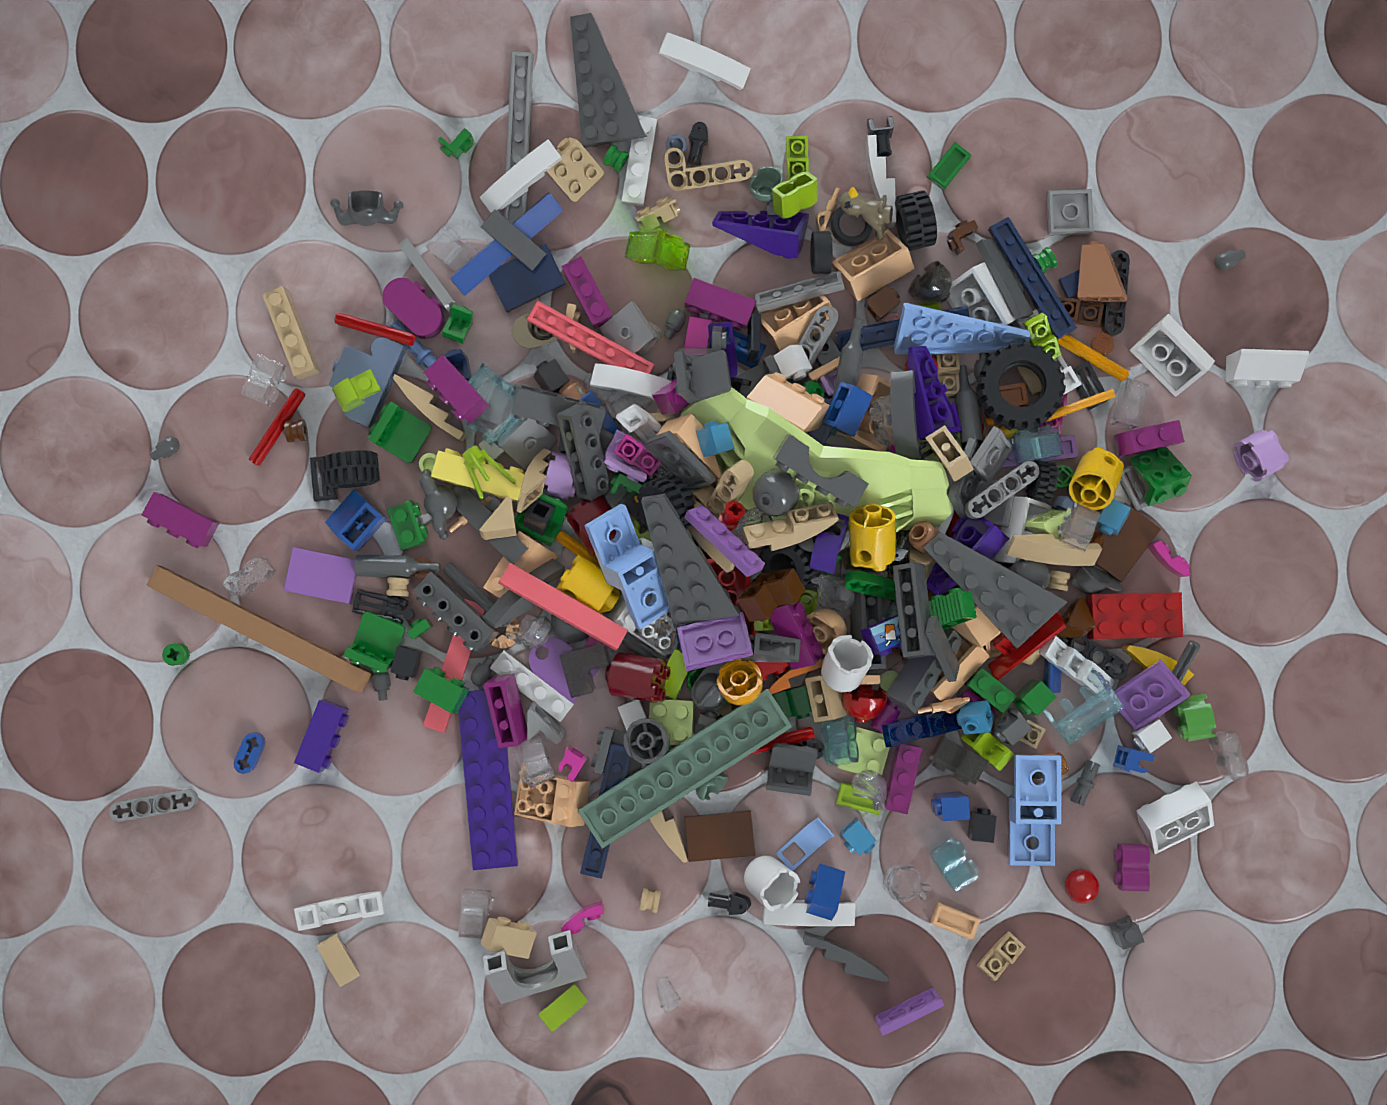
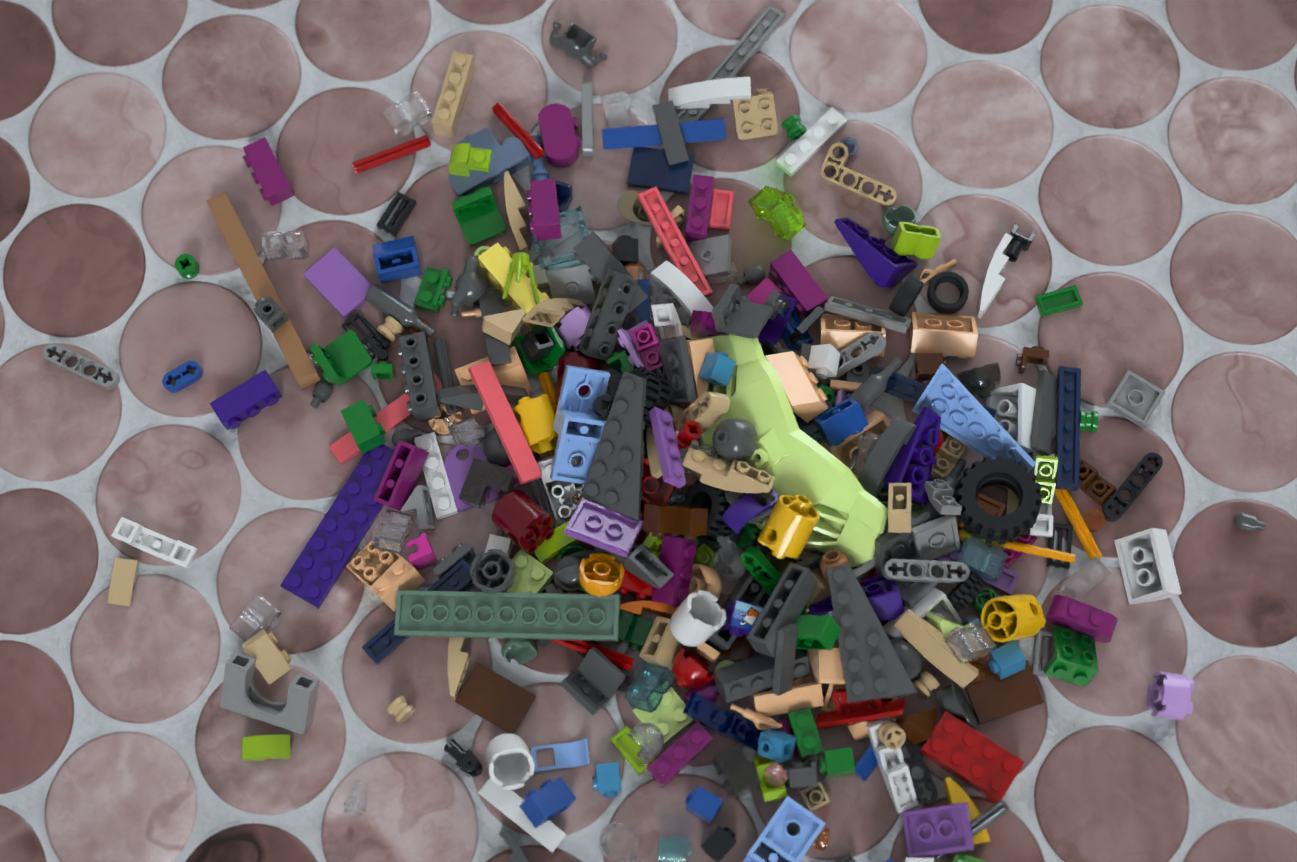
camera: 40 degrees right, 15 degrees down
(165, 448) = (297, 115): dark grey cylinder -> none
(293, 649) = (272, 319): none -> dark grey brick
(296, 431) = (403, 165): reddish brown wheel -> none
(350, 469) = (421, 215): black tyre -> none
(406, 662) = (352, 389): black brick -> none
(458, 324) = (584, 168): green bracket -> none
(460, 144) = (681, 43): green bracket -> none
(577, 921) = (331, 684): dark pink slope -> none
(602, 98) = (816, 77): dark grey wing -> none
(605, 279) = (721, 210): none -> coral tile
(635, 535) = (601, 407): none -> black wheel
(664, 209) = (805, 187): tan hinge -> none
(698, 140) = (870, 152): black piece -> none
(704, 60) = (914, 100): white slope -> none
(795, 456) = (793, 468): dark grey arch -> none
(796, 155) = (940, 214): lime slope -> none
(874, 212) = (970, 292): dark tan animal -> none
(916, 220) = (1000, 319): black tyre -> none
(973, 417) = (942, 497): none -> light grey slope
(994, 744) = (775, 774): none -> clear tile
(1066, 648) = (896, 737): none -> tan wheel
(1070, 284) = (1099, 455): dark blue tile -> none
(1088, 715) = (873, 805): clear light blue window -> none
(1099, 275) = (1125, 461): nougat slope -> none
(1174, 564) = (1035, 738): dark pink slope -> none
(1265, 367) = (1223, 627): white slope -> none

